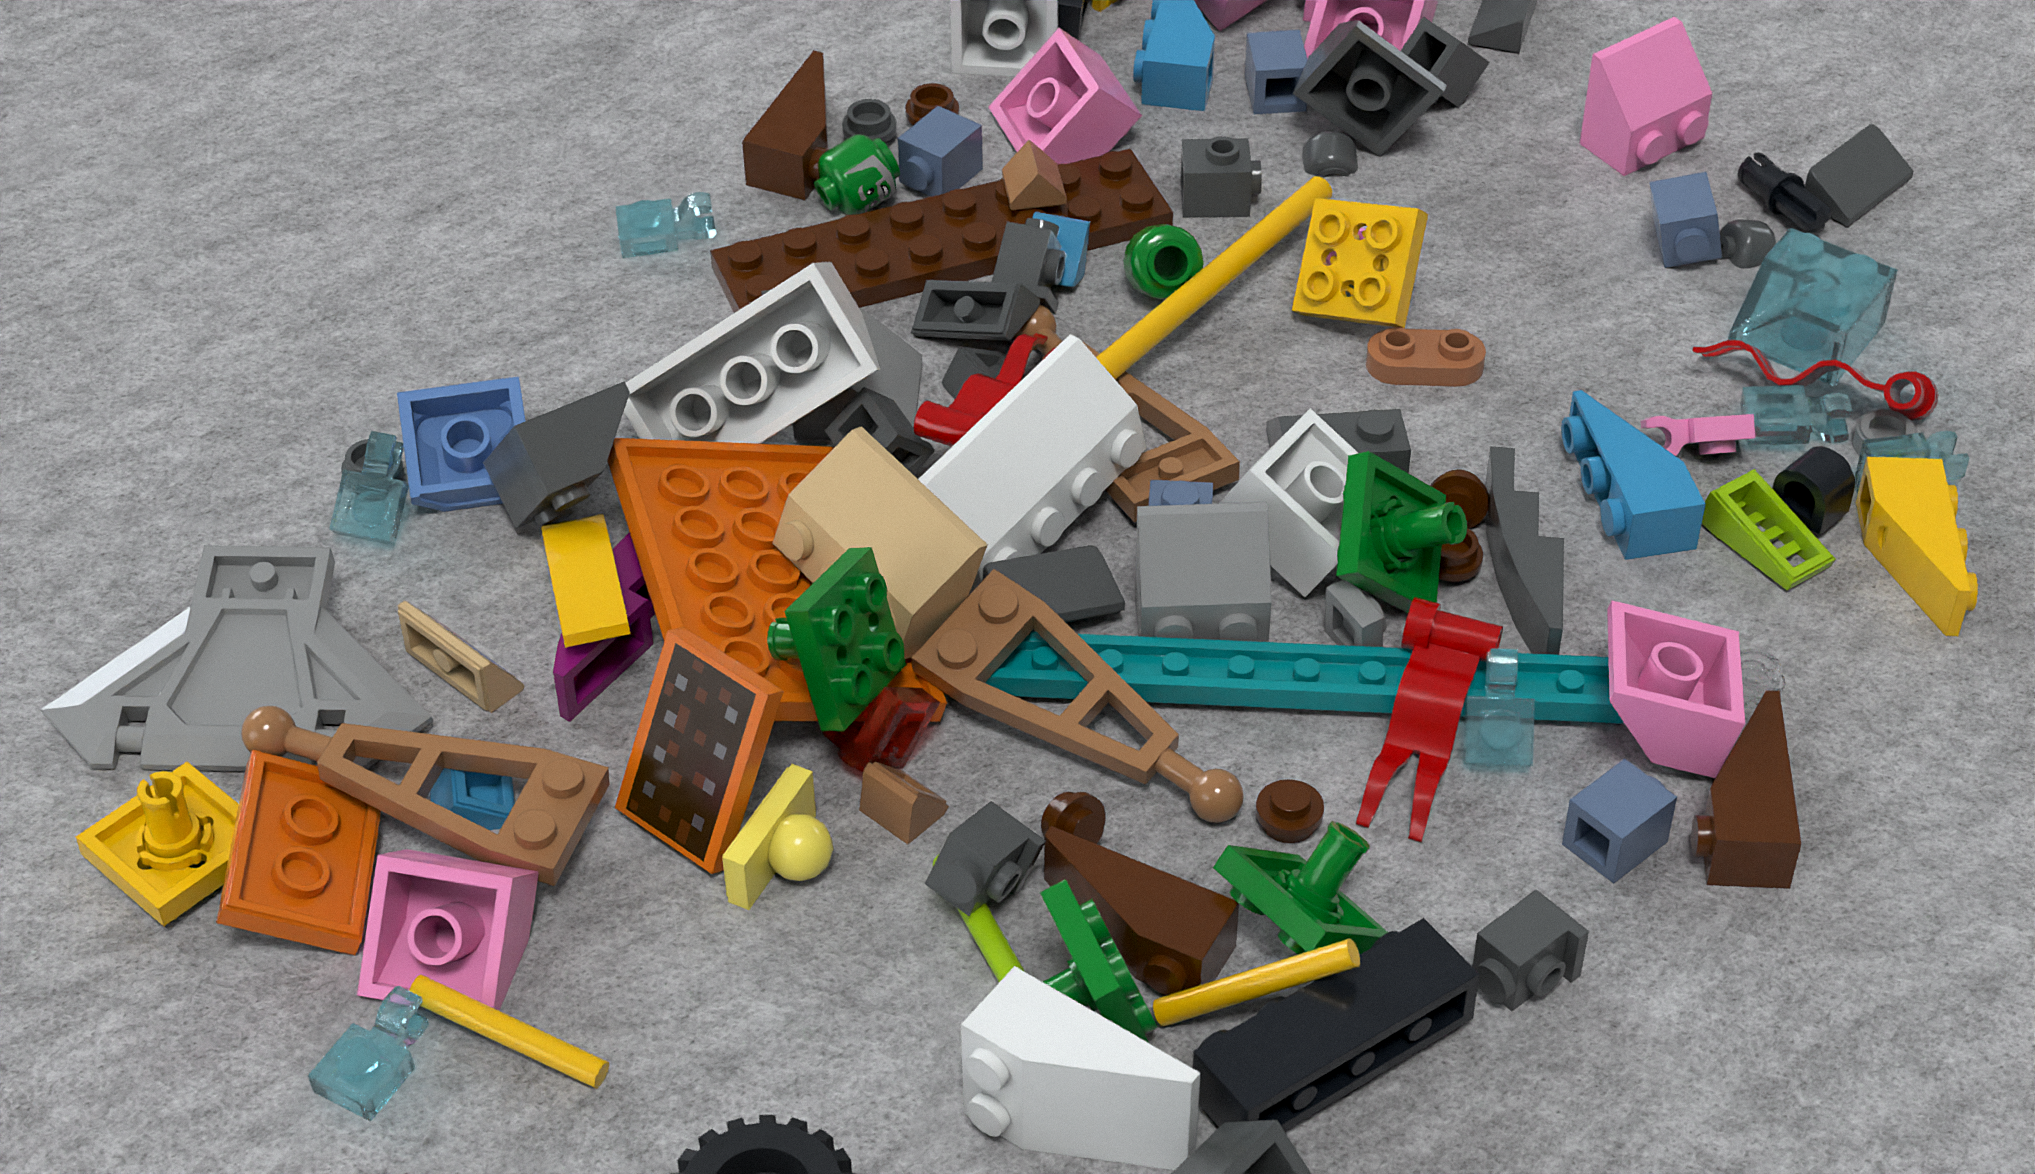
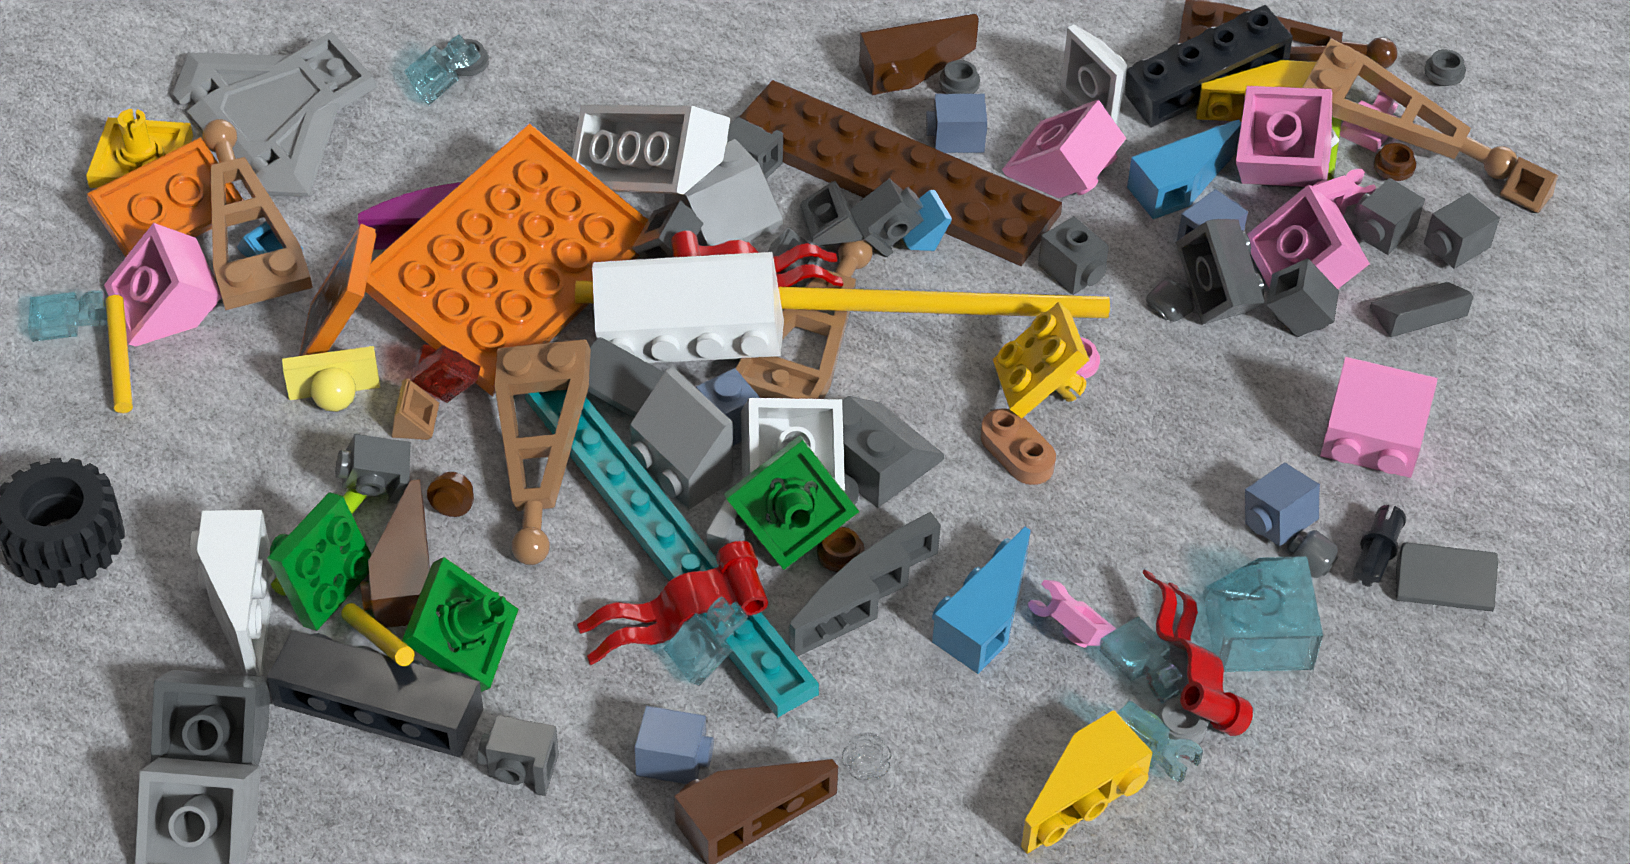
camera: 50 degrees right, 5 degrees up
(451, 435) = (509, 79): medium blue slope -> none
(456, 659) = (359, 174): tan slope -> none
(555, 457) = (499, 111): dark grey slope -> none
(585, 580) = (412, 187): yellow slope -> none
(656, 226) = (776, 46): clear light blue plate -> none
(841, 638) = (453, 304): green plate -> none
(857, 175) = (898, 99): green head -> none
(871, 500) = (548, 278): tan slope -> none
(926, 98) = (1005, 96): reddish brown plate -> none
(1032, 179) = (967, 174): medium nougat slope -> none
(1161, 260) = (959, 270): green head -> none
(1289, 810) = (552, 586): reddish brown plate -> none
(1467, 492) = (886, 520): reddish brown plate -> none
(1676, 686) = (791, 704): bright pink slope -> none
(1749, 501) = (1027, 665): lime slope -> none
(1817, 487) = (1072, 702): black plate -> none

